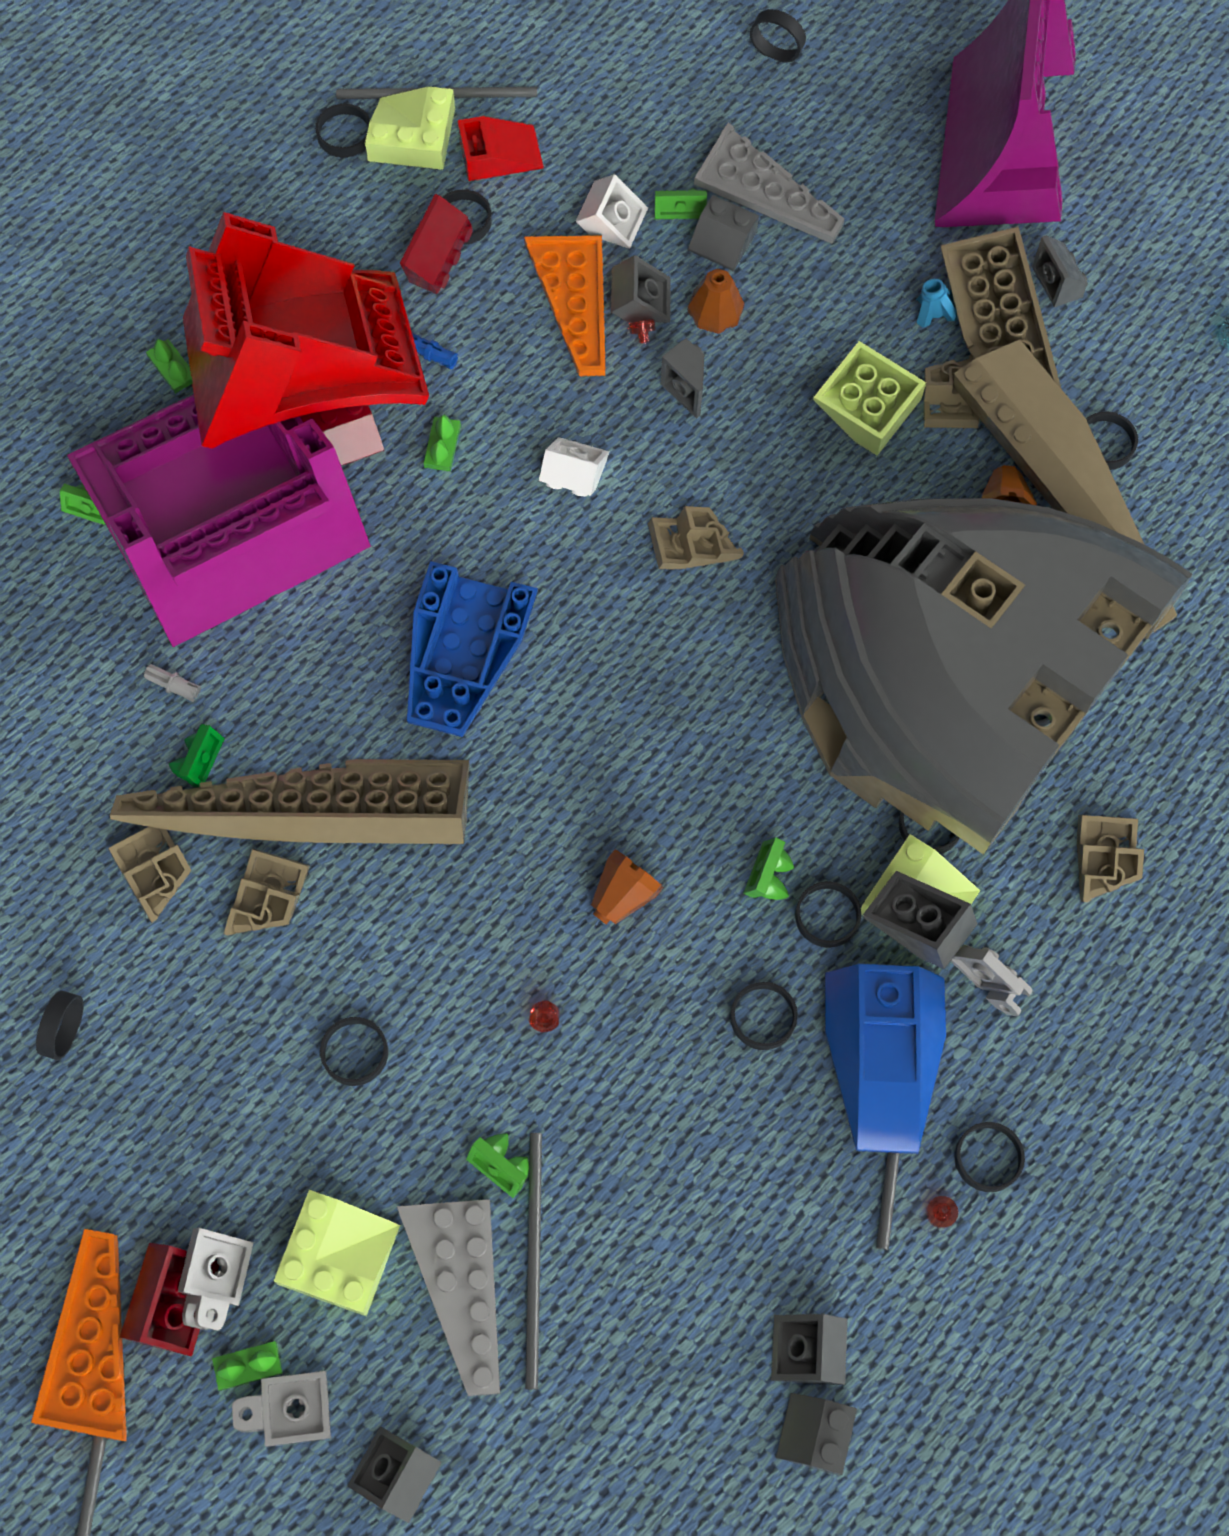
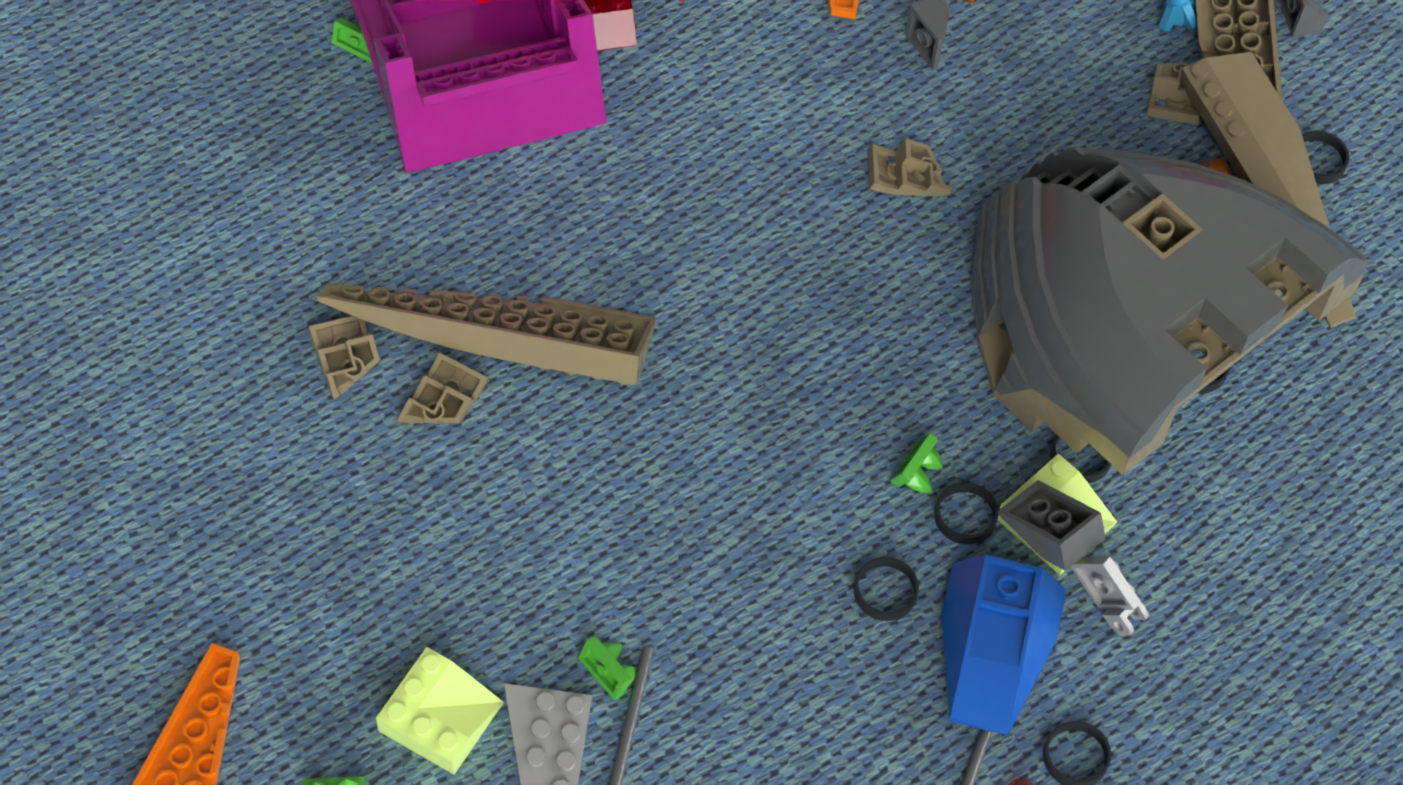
camera: 10 degrees right, 10 degrees down
(65, 1006) = (221, 458): black tyre -> none
(156, 1304) = (276, 719): dark red slope -> none
(172, 682) = (399, 201): light grey axle -> none
(202, 753) = (410, 267): green tile -> none
(212, 1293) = (319, 720): light grey plate -> none
(347, 1021) = (494, 517): black tyre -> none
(442, 443) = (691, 48): bright green tile -> none
(461, 645) = (671, 217): blue wedge -> none
(544, 1016) = (678, 547): clear red tile -> none
(573, 466) = (807, 88): white slope -> none
(622, 889) = (777, 451): dark orange cone -> none
(870, 397) = (1100, 78): yellowish green slope -> none
(1101, 861) = (1242, 516): dark tan slope -> none

